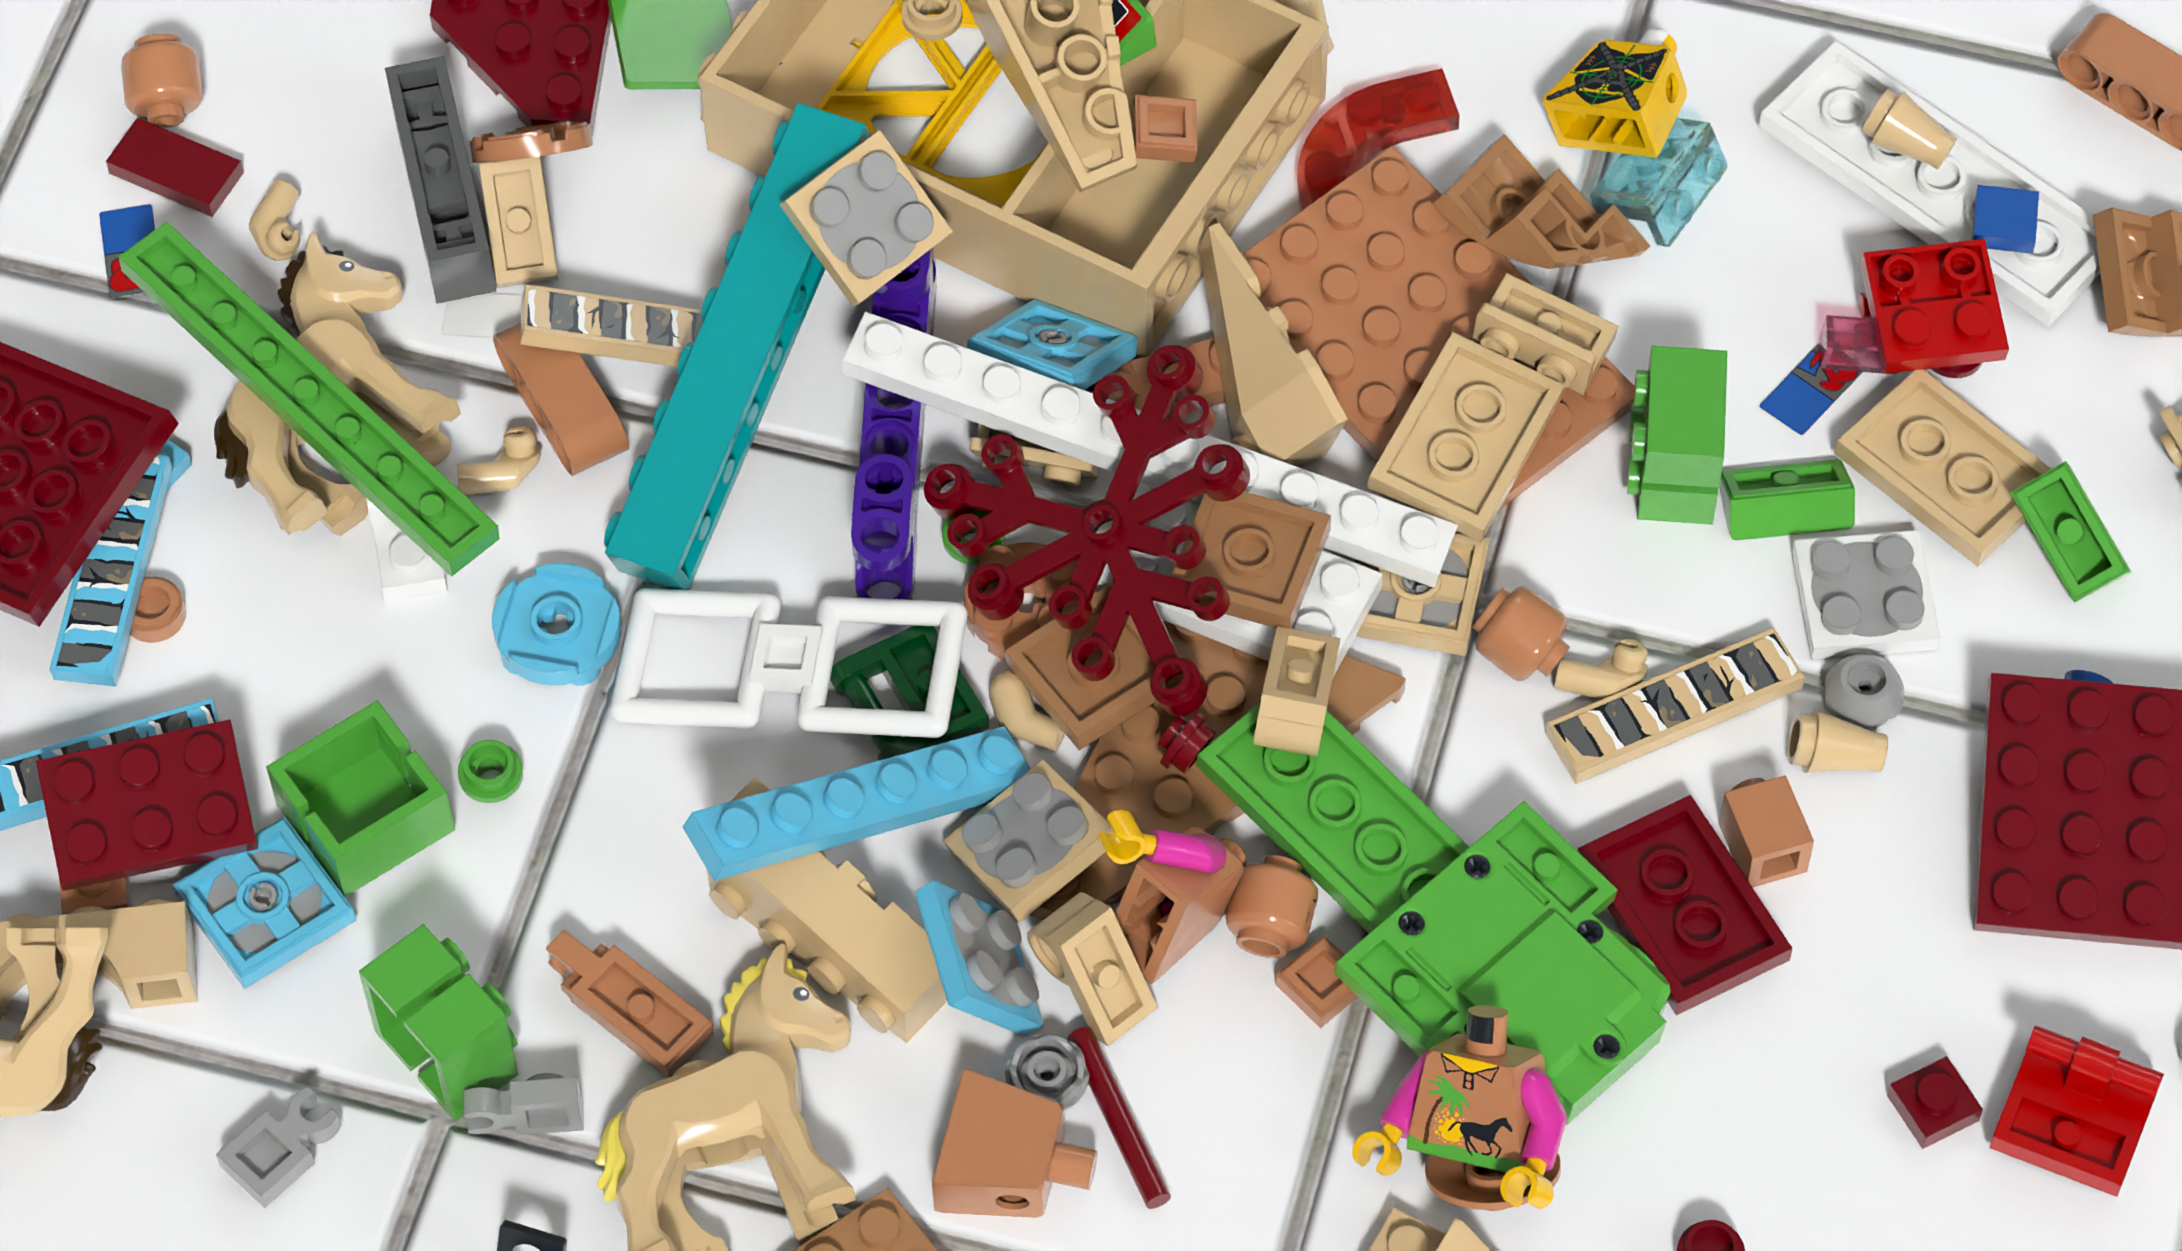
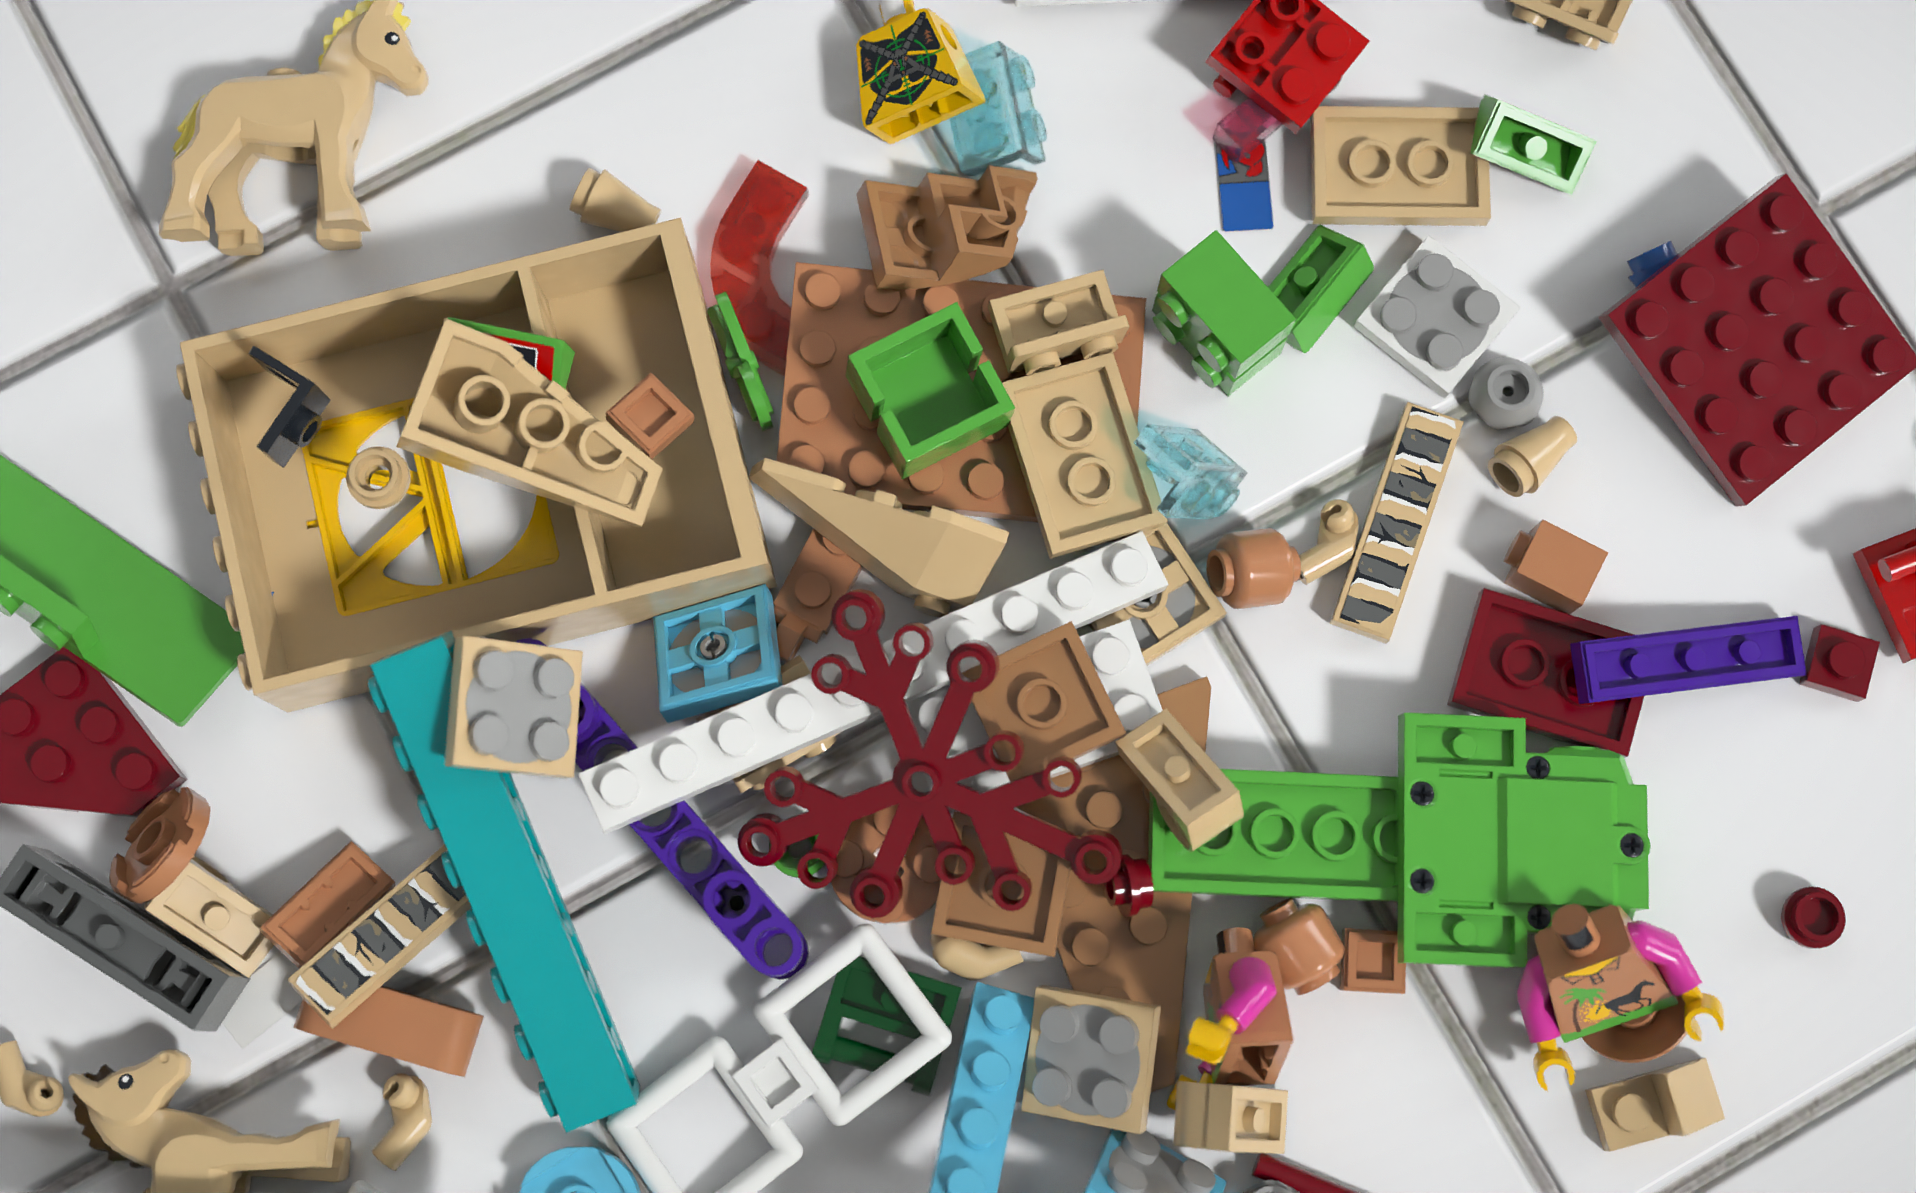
camera: 45 degrees left, 20 degrees up
(600, 274) = (327, 905): none -> nougat plate
(1278, 185) = (741, 361): none -> bright green piece
(1393, 285) = (924, 391): none -> bright green piece
(1537, 518) = (1201, 472): none -> clear light blue bracket
(1803, 979) = (1687, 659): none -> dark purple tile

